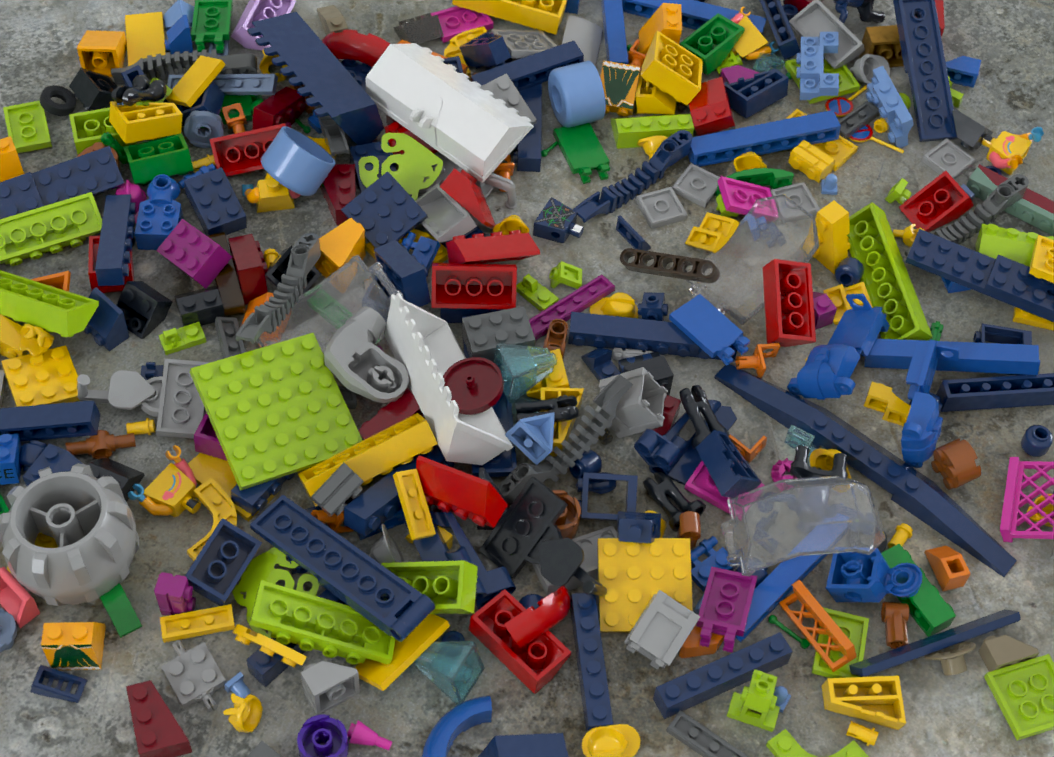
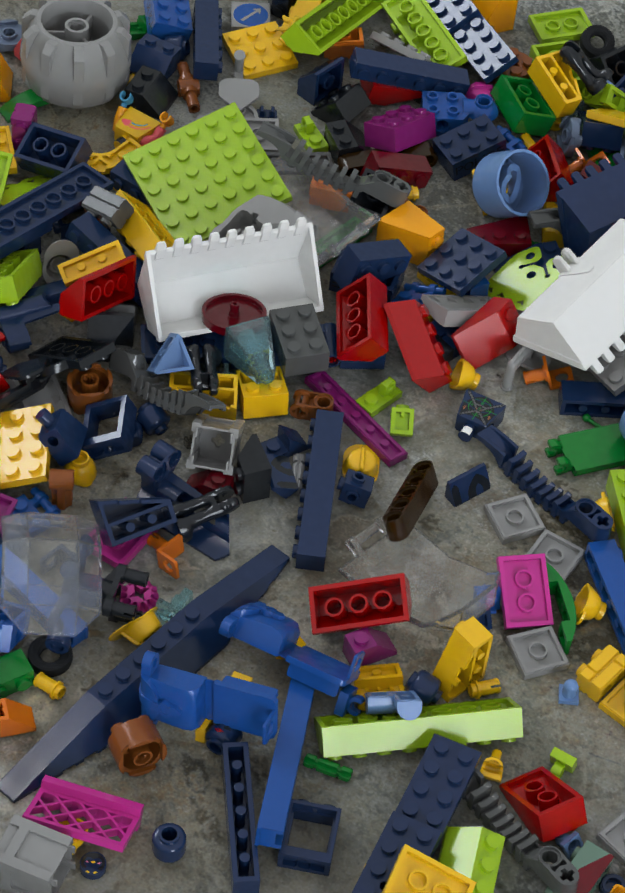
camera: 90 degrees right, 5 degrees down
(58, 254) = (398, 46): none -> light grey plate
(141, 427) = (206, 107): yellow pin -> none
(665, 489) = (120, 479): black piece -> none
(709, 329) = (320, 526): blue tile -> none
(712, 233) = (468, 551): yellow slope -> none
(757, 359) = (287, 579): orange bracket -> none
(876, 278) = (404, 703): none -> medium blue brick

